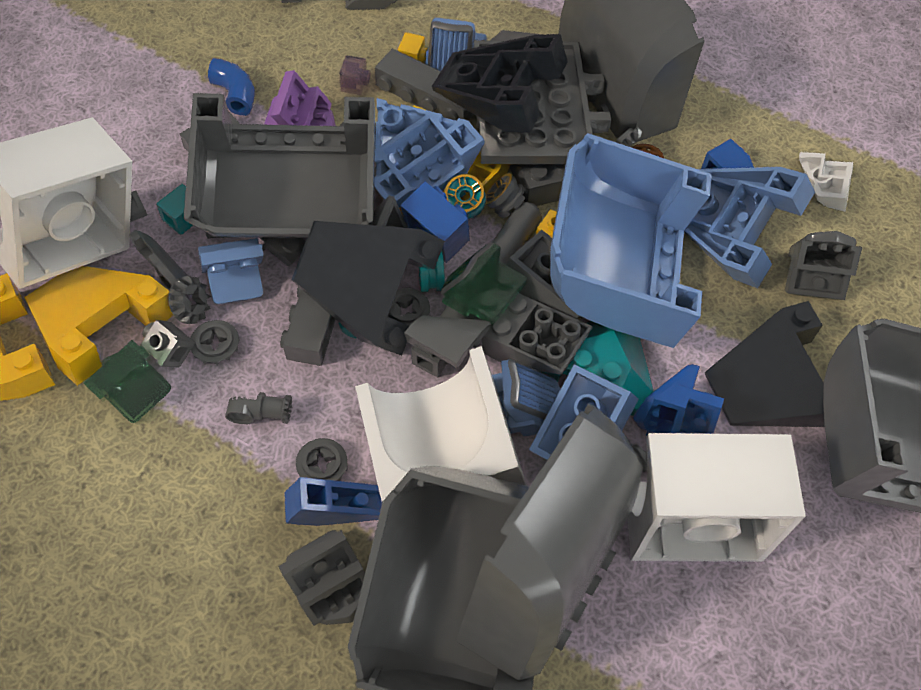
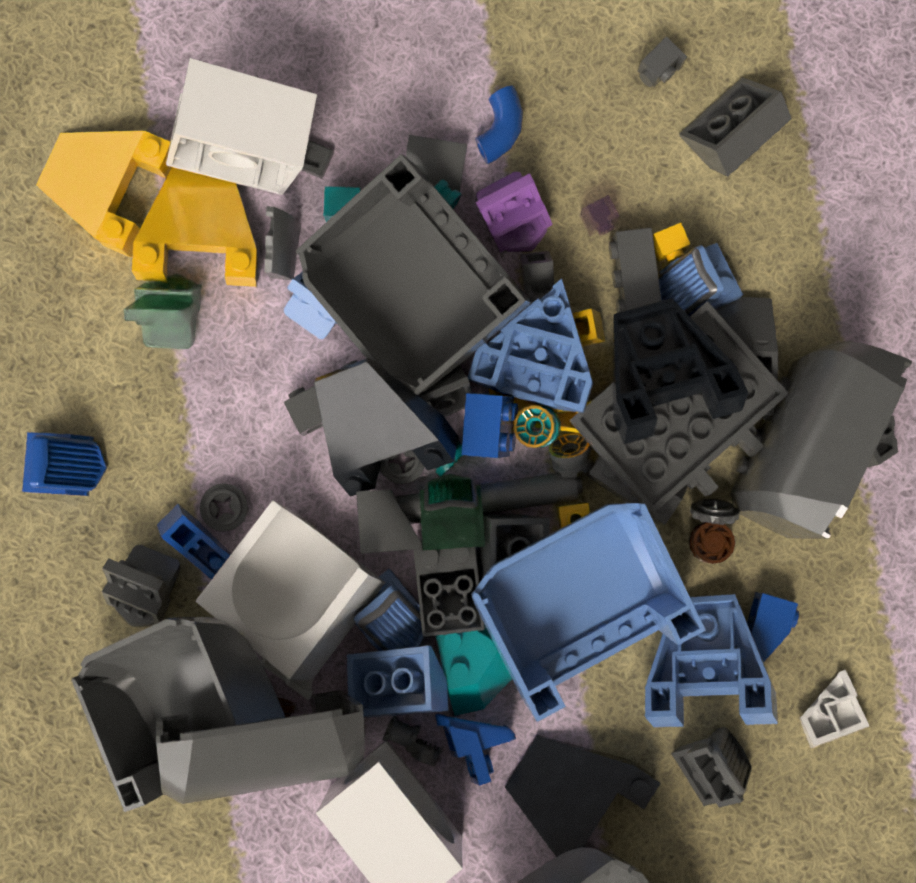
camera: 55 degrees right, 25 degrees up
(156, 565) = (62, 464): none -> blue piece
(166, 343) = (220, 310): dark grey brick -> none
(181, 305) = (271, 283): dark grey gear -> none
(204, 335) = (240, 342): dark grey gear -> none
(246, 410) = (231, 429): dark grey connector -> none

